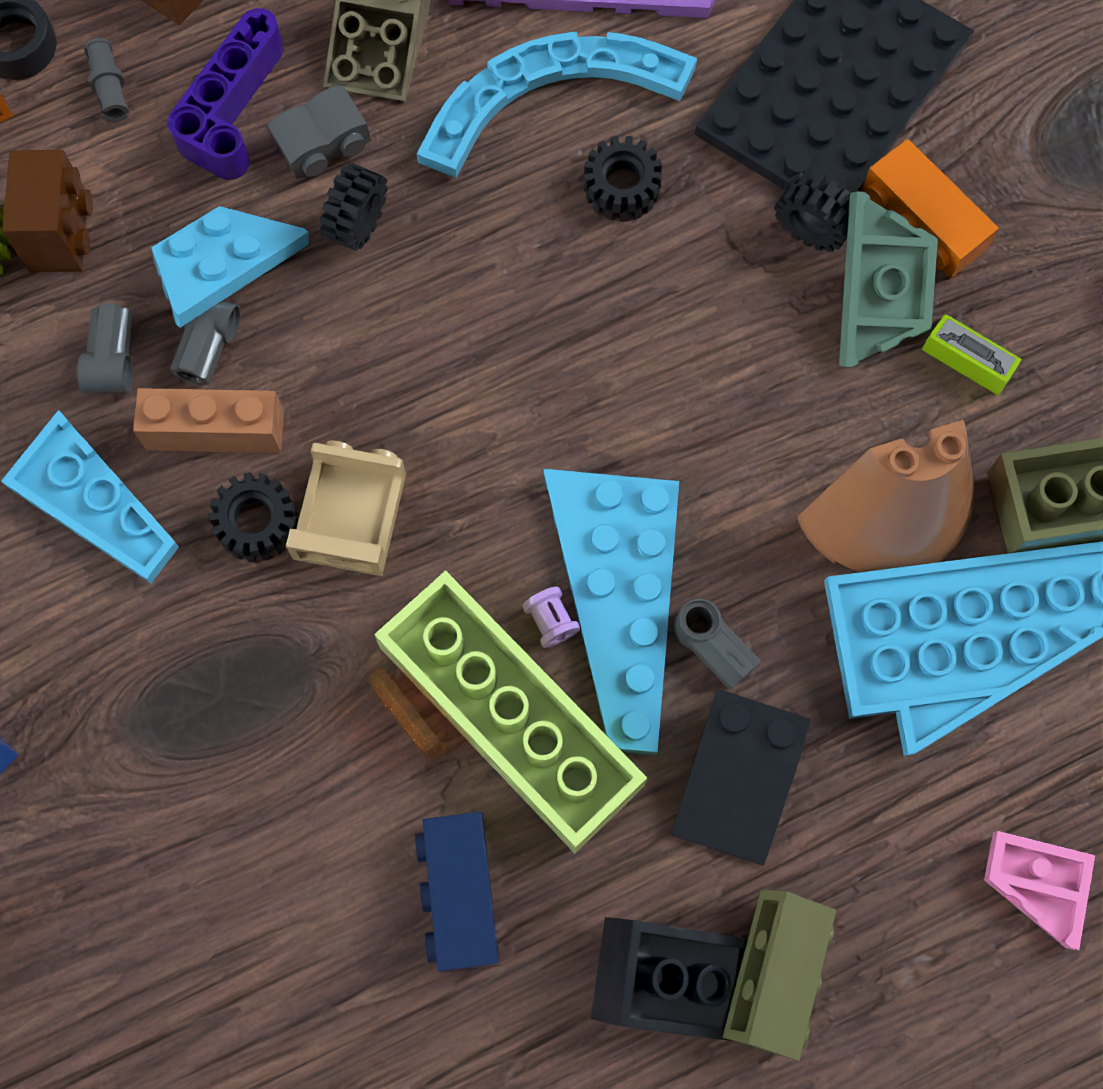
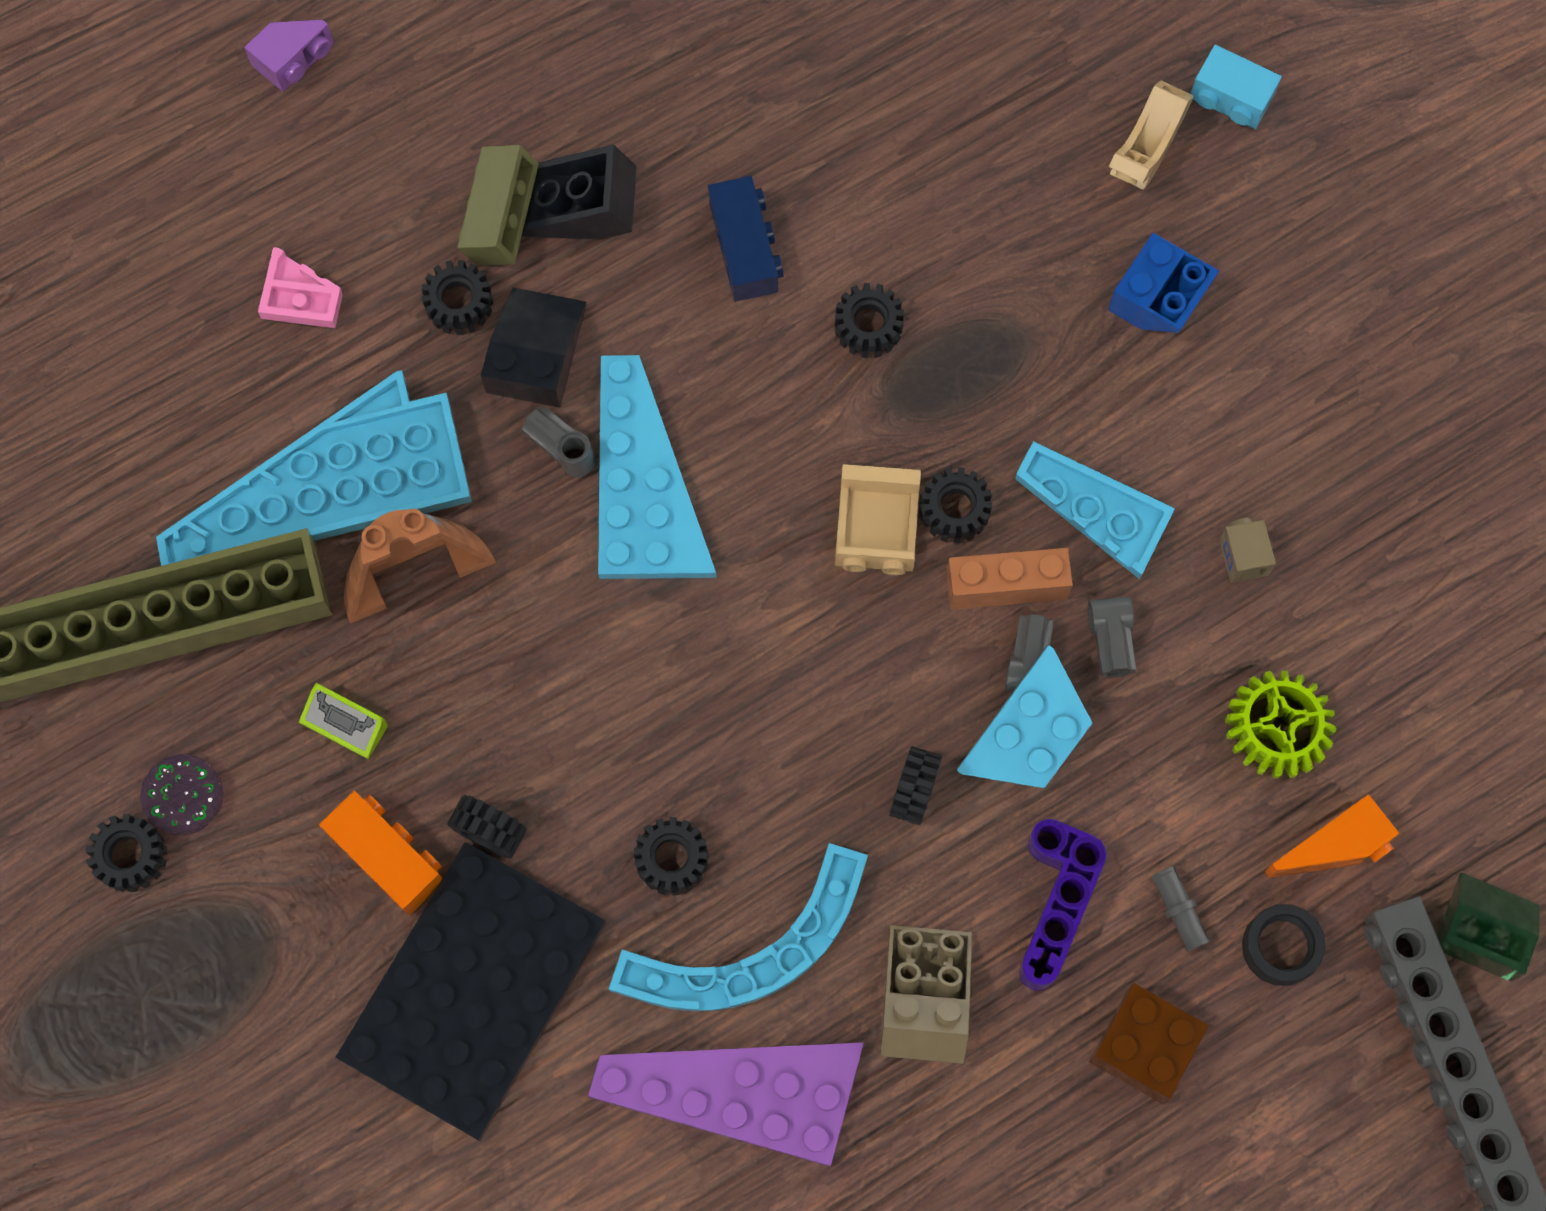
camera: 175 degrees right, 0 degrees up
(46, 211) = (1195, 746): reddish brown brick -> none
(299, 738) = (873, 300): none -> black tyre
(319, 132) = (963, 871): dark grey brick -> none
(405, 713) = (804, 360): clear orange tile -> none
(510, 711) = (721, 365): yellowish green brick -> none
(551, 617) = (692, 436): lavender bush -> none
(865, 846) = (457, 277): none -> black tyre
(885, 280) = (423, 766): sand green wing -> none

